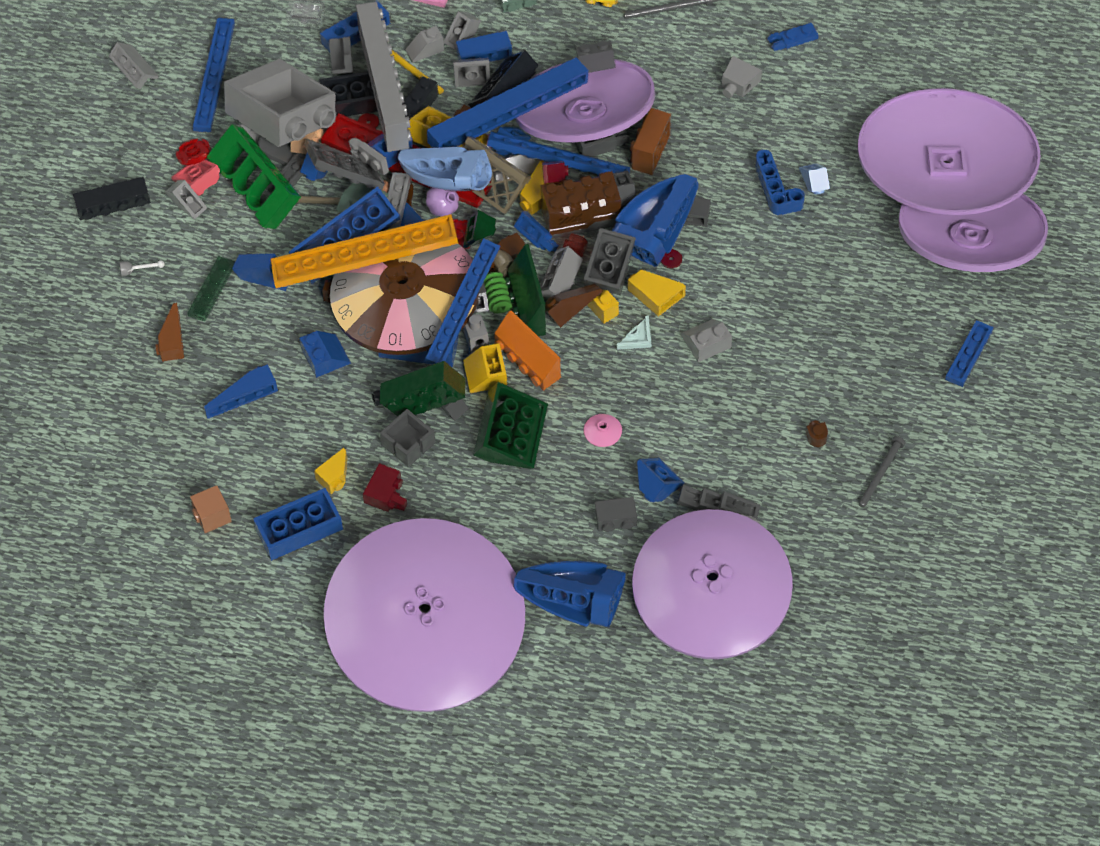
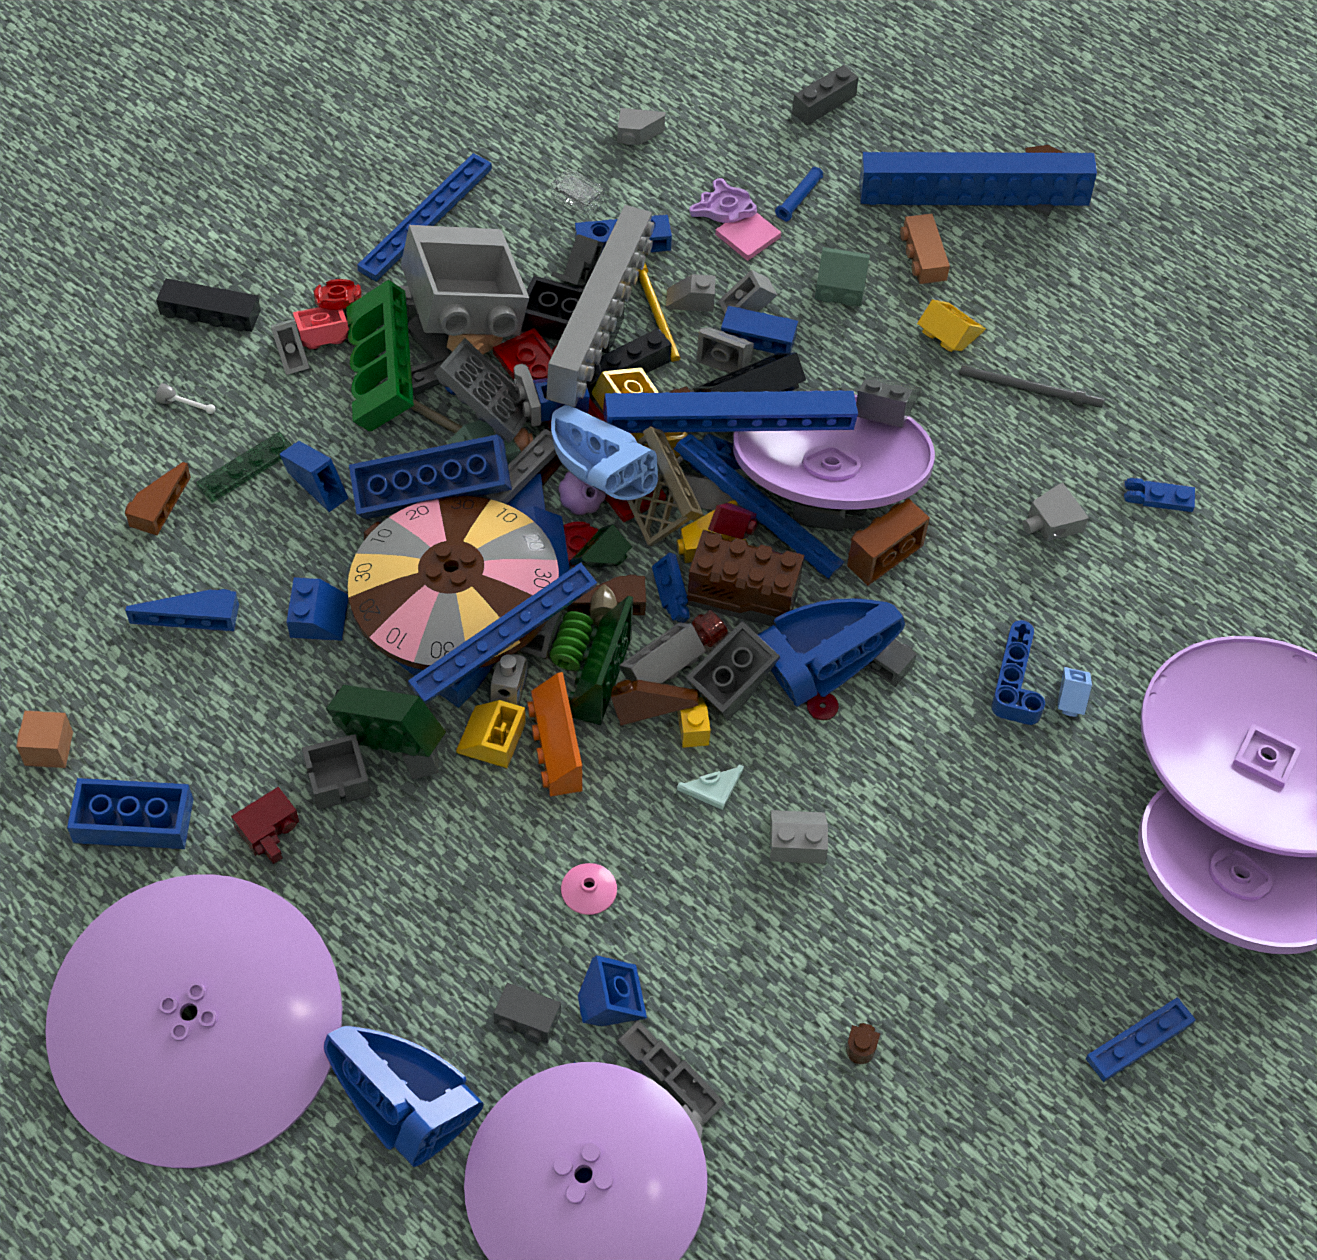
camera: 25 degrees right, 0 degrees up
(132, 64) = (344, 163): light grey panel -> none
(333, 472) = (223, 768): yellow slope -> none
(363, 251) = (433, 507): light orange plate -> none
(510, 427) = (473, 825): dark green slope -> none
(625, 187) = (813, 583): dark grey brick -> none
(655, 290) = (773, 739): yellow slope -> none
(897, 442) = (963, 1116): dark grey bar -> none

